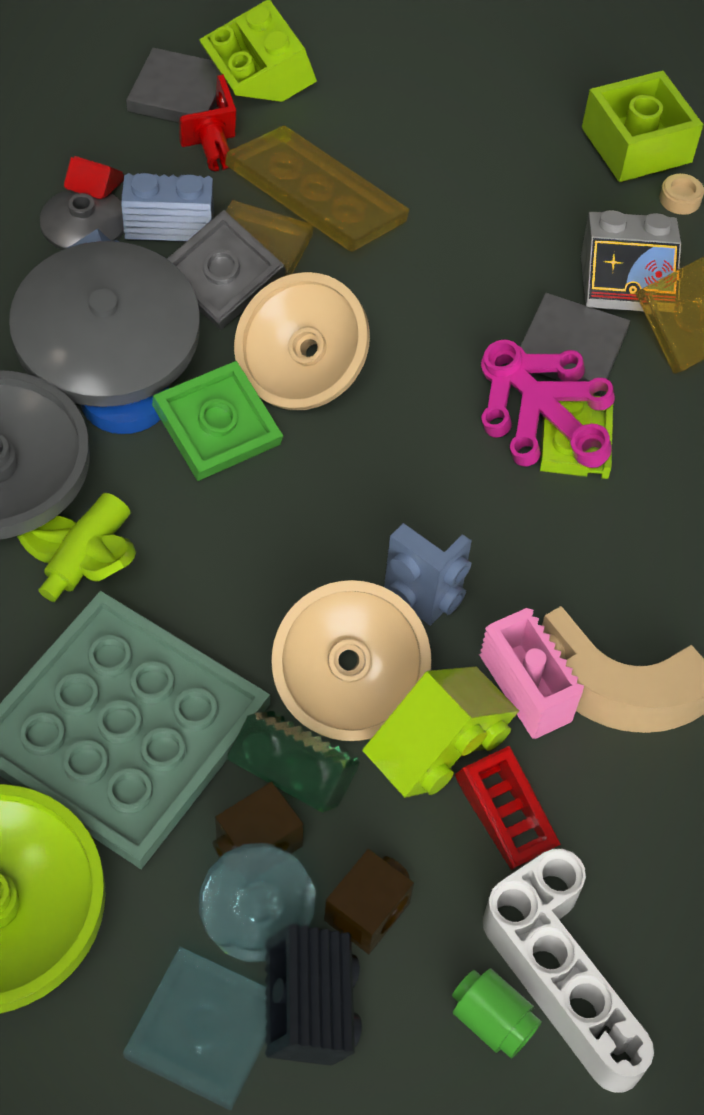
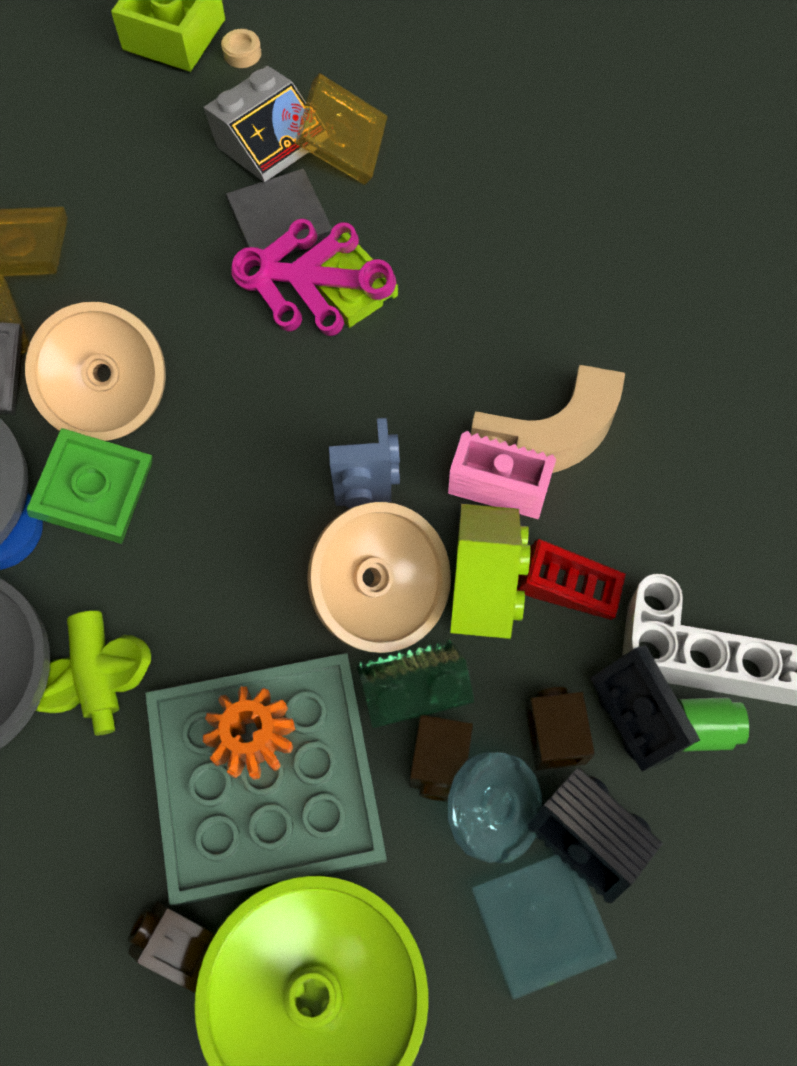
camera: 40 degrees left, 10 degrees up
(136, 676) = (232, 724): none -> orange gear
(449, 944) = (644, 709): none -> black bracket

